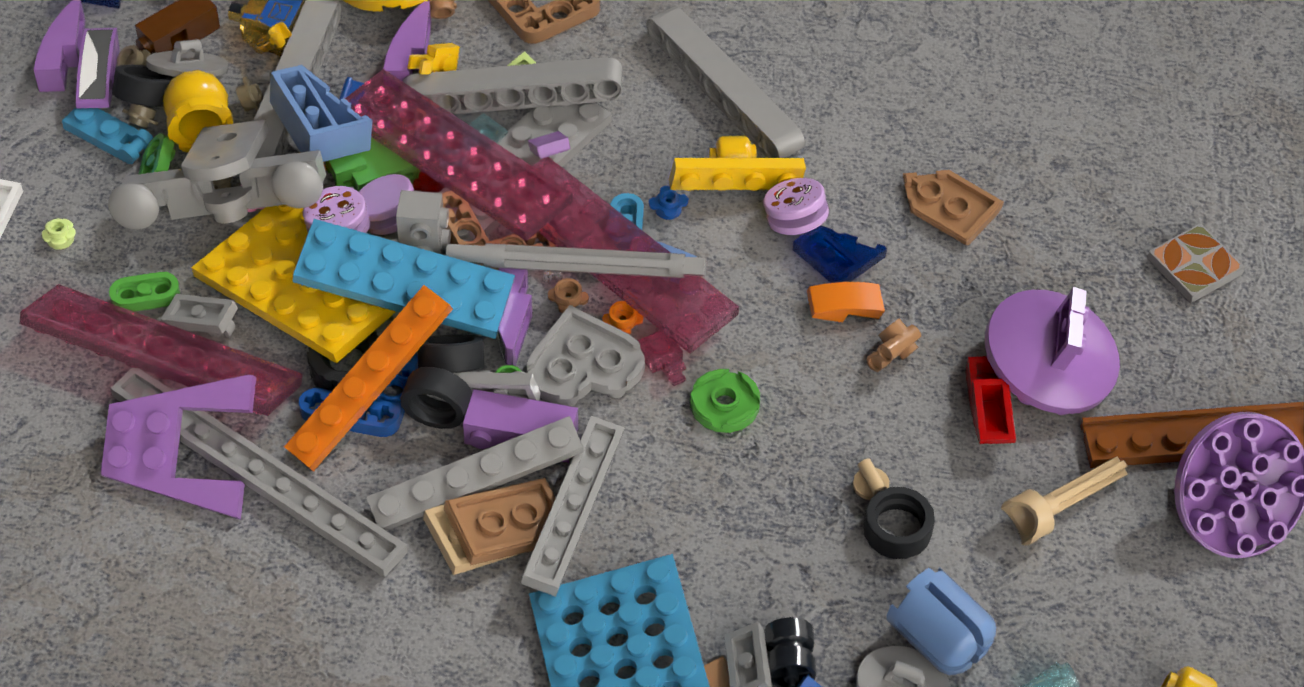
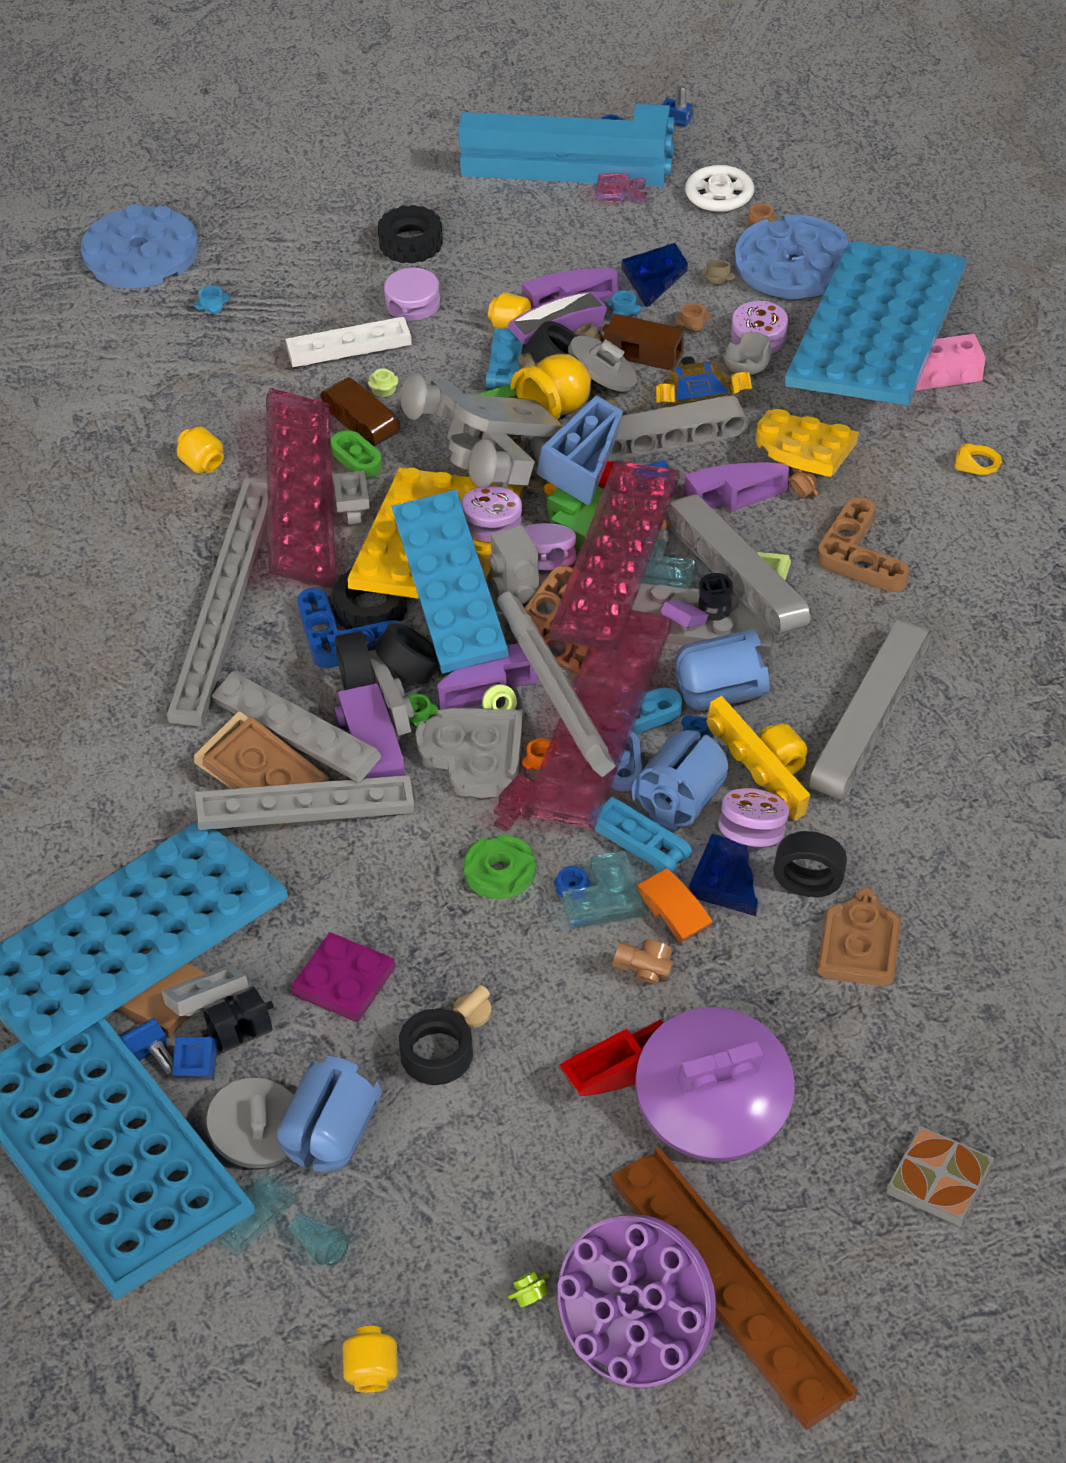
camera: 65 degrees right, 5 degrees down
(38, 409) = (200, 450): none -> yellow head
(52, 99) = (506, 308): none -> yellow head
(89, 264) = (360, 411): none -> reddish brown beam
(111, 17) = (624, 303): none -> dark azure plate
(145, 442) = (200, 522): medium lavender wing -> none
(368, 378) = (343, 610): orange plate -> none
(438, 59) = (729, 505): yellow plate -> none
(542, 317) = (496, 691): none -> yellowish green plate
(546, 114) = (715, 596): none -> black wheel
(565, 288) = (539, 708): medium nougat plate -> none
(629, 149) = (721, 667): none -> medium blue cylinder
(728, 232) = (681, 779): none -> medium blue cylinder
(765, 287) = (641, 836): none -> dark azure plate
(777, 561) = (343, 977): none -> magenta plate
(782, 351) = (571, 878): none -> blue plate
(811, 333) = (610, 900): none -> clear light blue plate
(872, 192) = (808, 881): none -> black tyre
(1035, 513) = (509, 1147): tan piece -> none
(1174, 559) = (529, 1288): none -> lime plate

